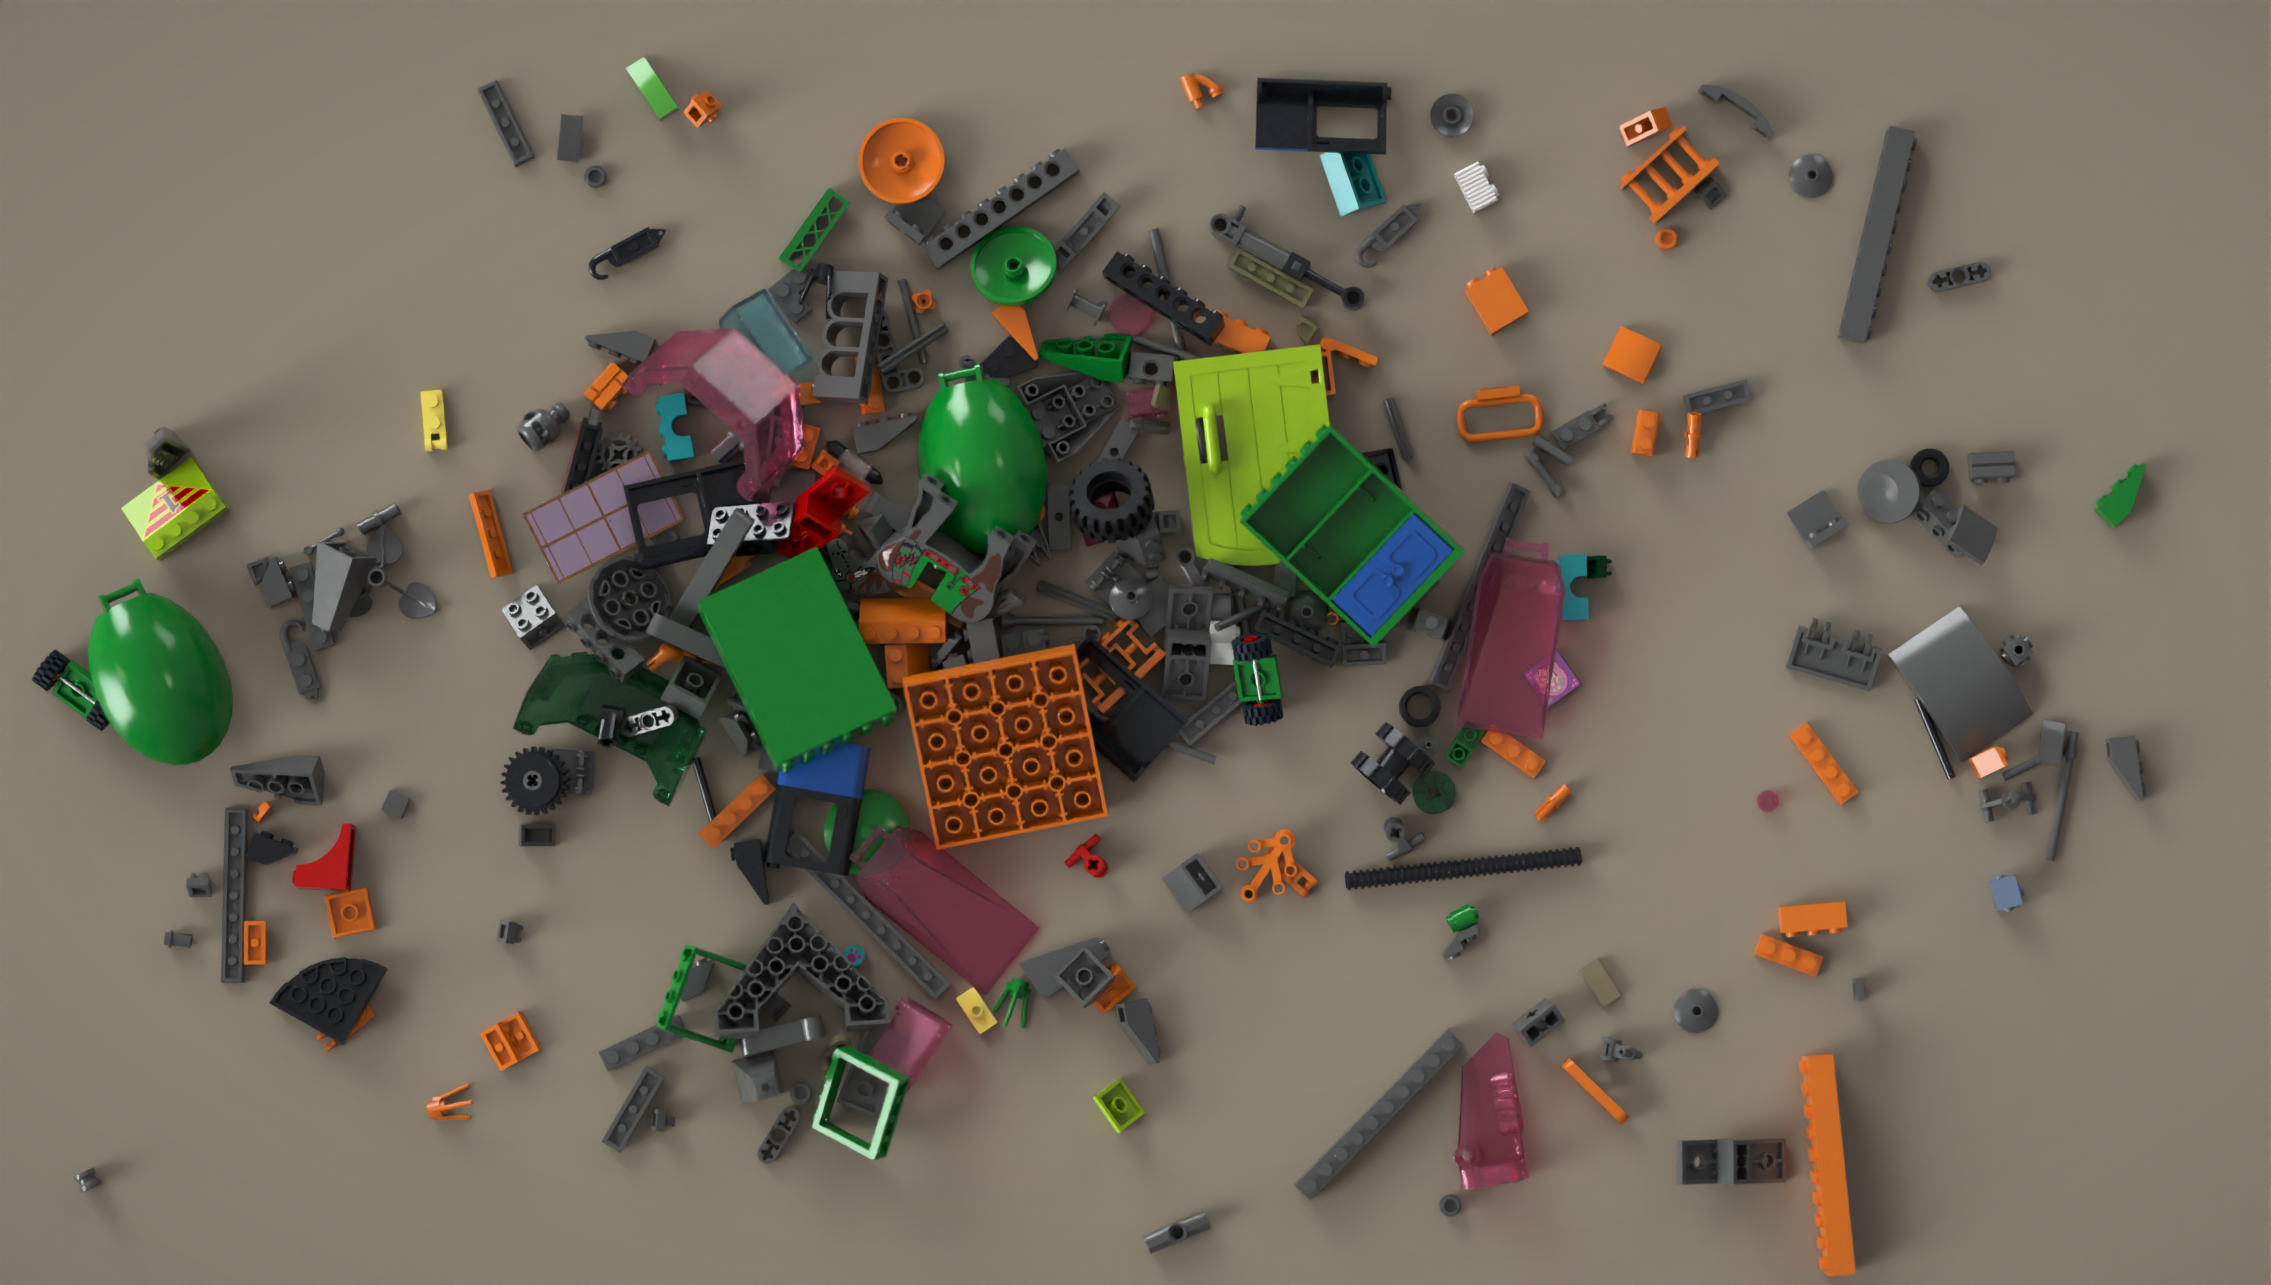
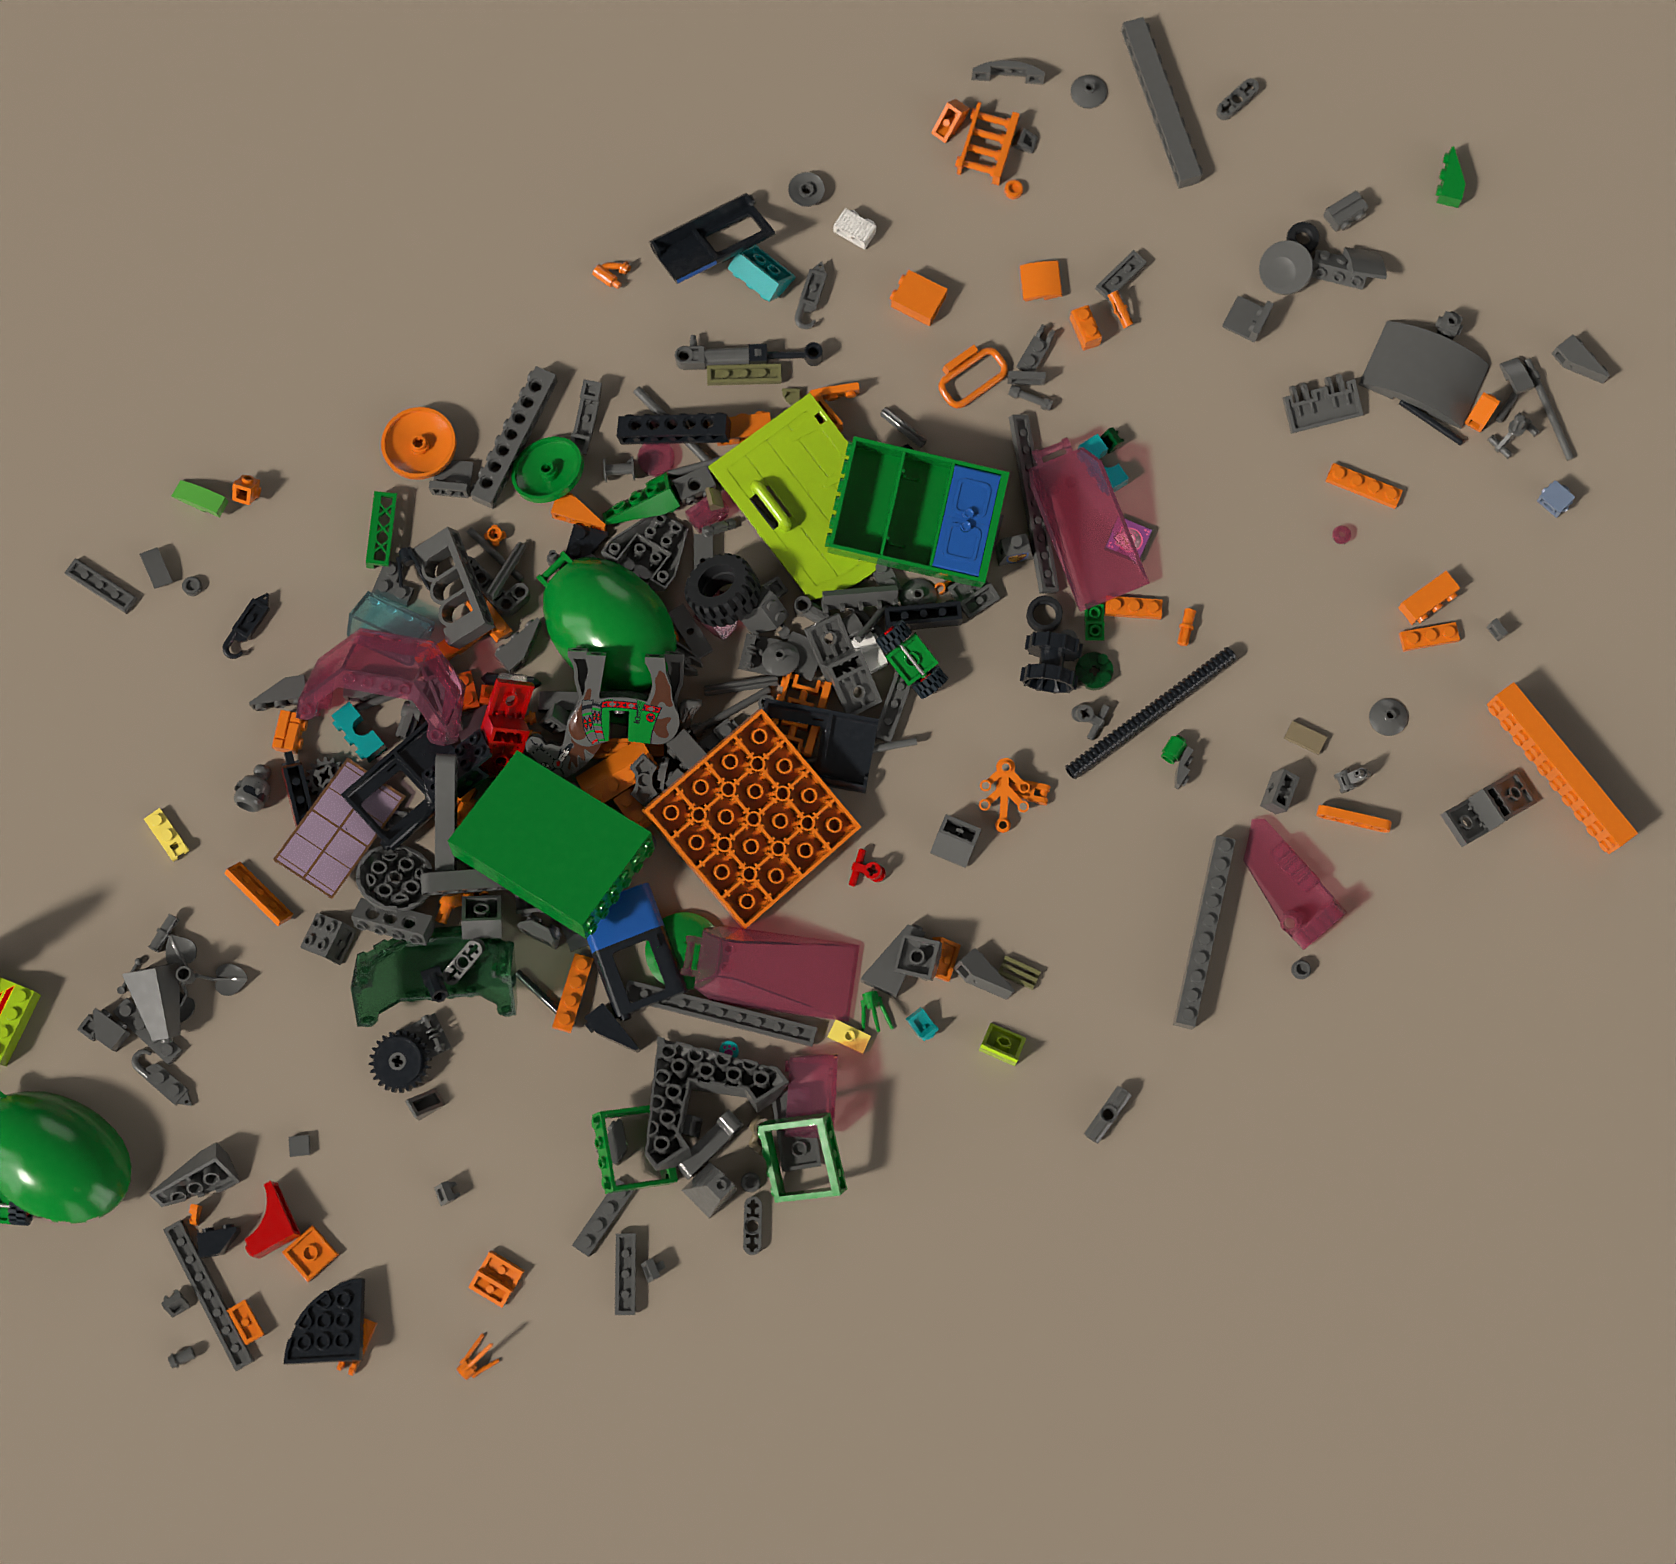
camera: 30 degrees left, 10 degrees down
(928, 637) = (643, 769): none -> dark grey tile
(1052, 1041) = (922, 1024): none -> teal bracket
(1186, 1061) = (1023, 966): none -> olive tile

